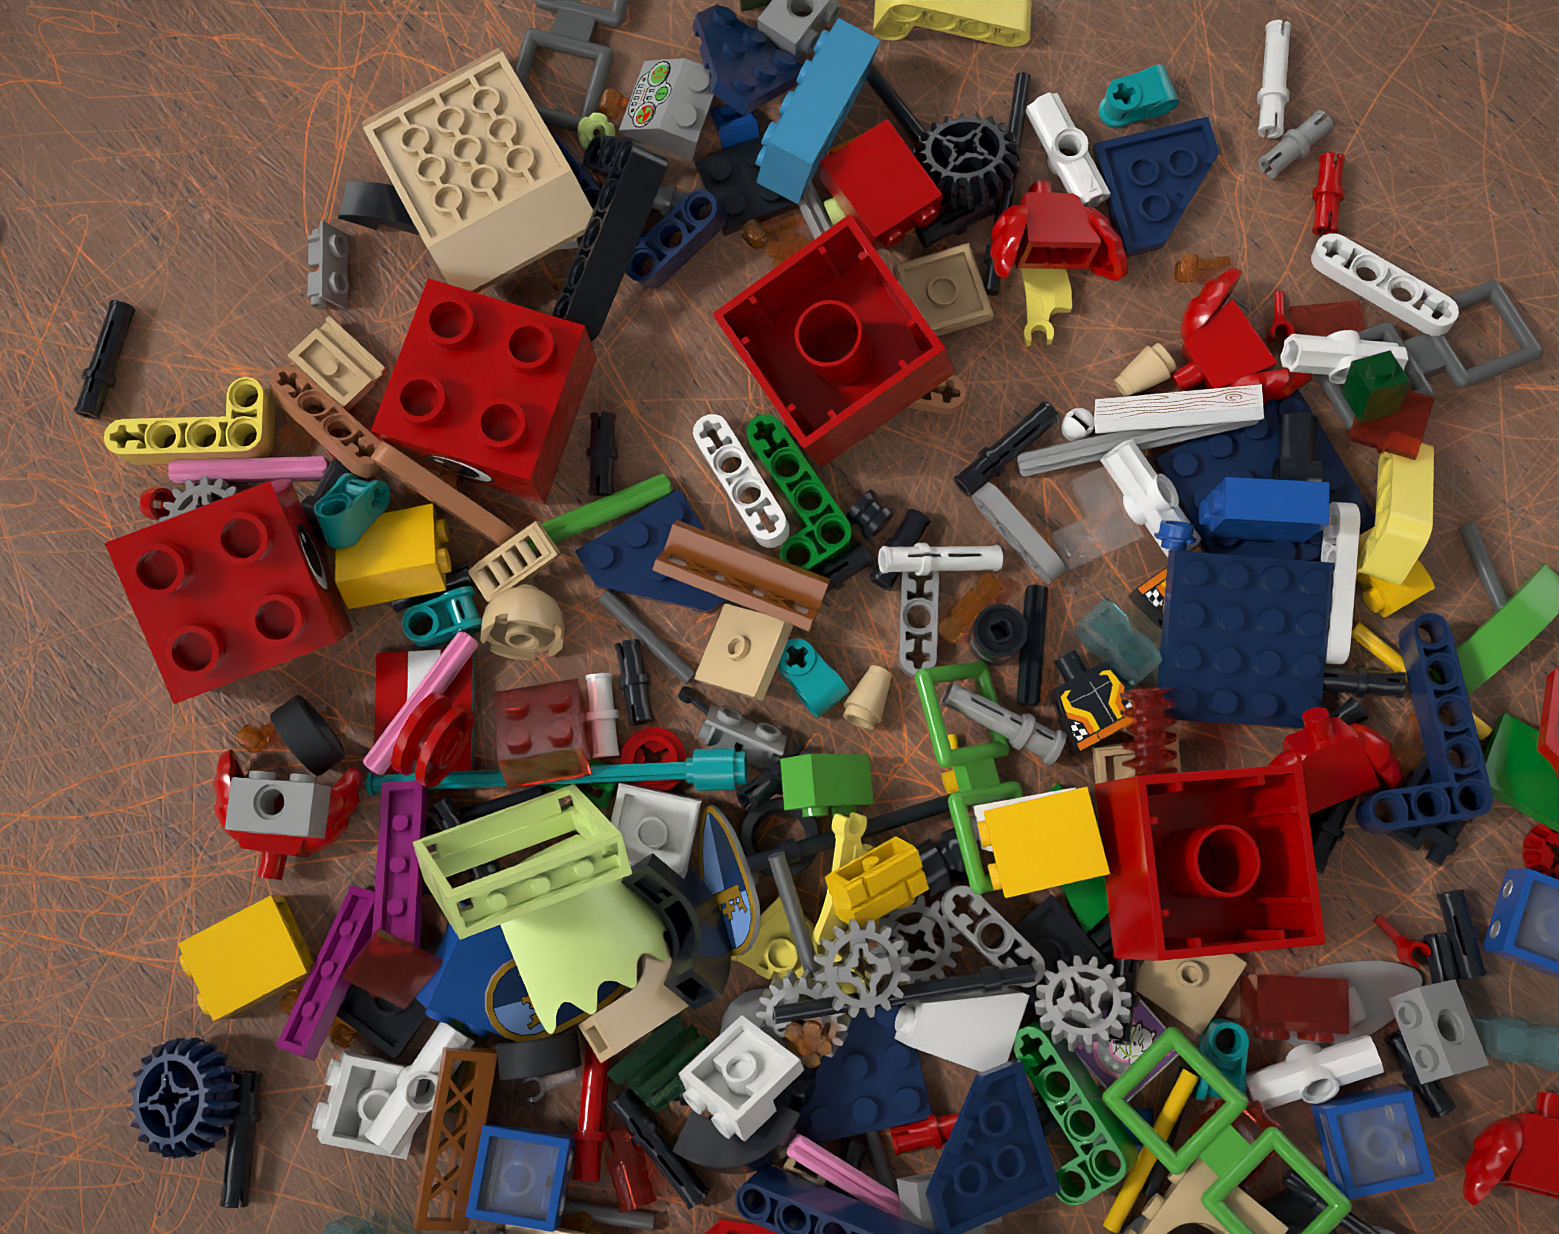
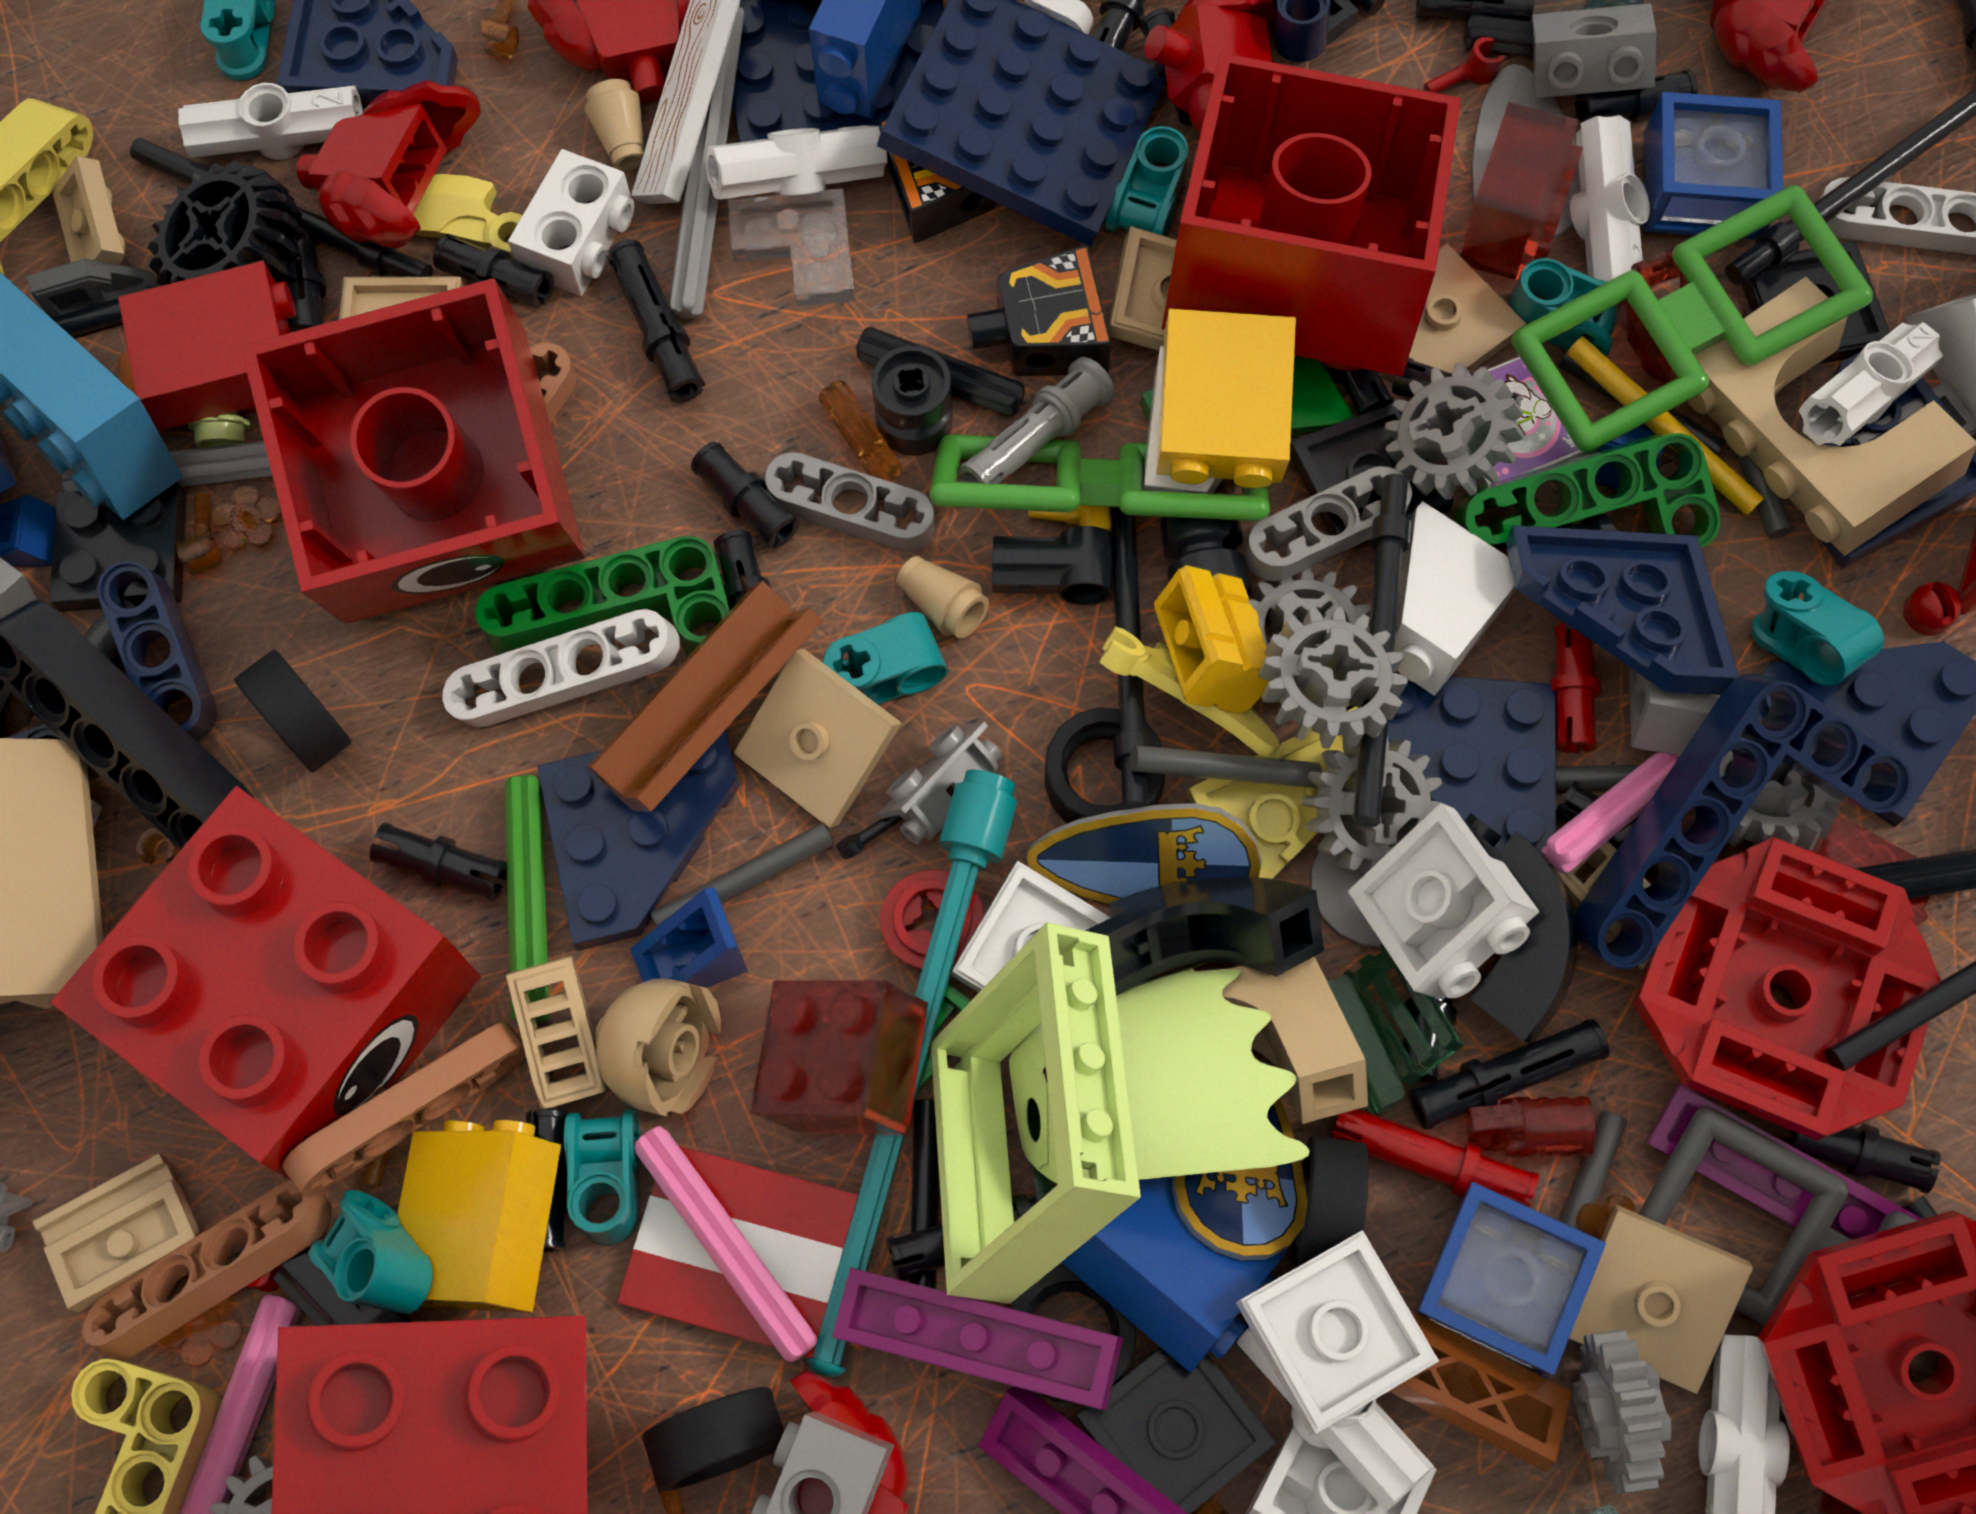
camera: 75 degrees left, 10 degrees down
(391, 968) = (1137, 1388): clear red piece -> none
(433, 739) = (794, 1220): red wheel -> none
(449, 1078) = (1337, 1332): none -> white tile
(551, 1082) = (1374, 1209): clear hand -> none
(590, 622) = (692, 945): none -> blue slope
(602, 715) = (809, 964): white pin -> none
(634, 682) = (806, 912): black pin -> none
(661, 333) = (292, 710): none -> black tyre
(766, 784) = (1018, 748): black pin -> none
(807, 1042) = (1414, 794): clear orange plant -> none
(825, 783) = (1049, 674): bright green brick -> none
(870, 514) = (680, 513): black wheel -> none
(910, 91) = (85, 285): none -> dark grey tile
(915, 772) = (1071, 565): none -> black piece
(924, 559) = (773, 456): white pin -> none
(956, 70) = (87, 213): none -> tan plate
(1007, 333) = (481, 264): none -> black pin
(1018, 533) = (778, 338): light grey beam -> none
(1057, 359) = (562, 219): none -> white brick
(1073, 429) = (656, 227): white hinge -> none
(1110, 635) = (963, 259): clear light blue brick -> none
(1149, 730) = (1111, 239): clear red piece -> none
(1175, 535) = (858, 135): blue plate -> none
(1209, 743) = (1151, 193): none -> teal piece

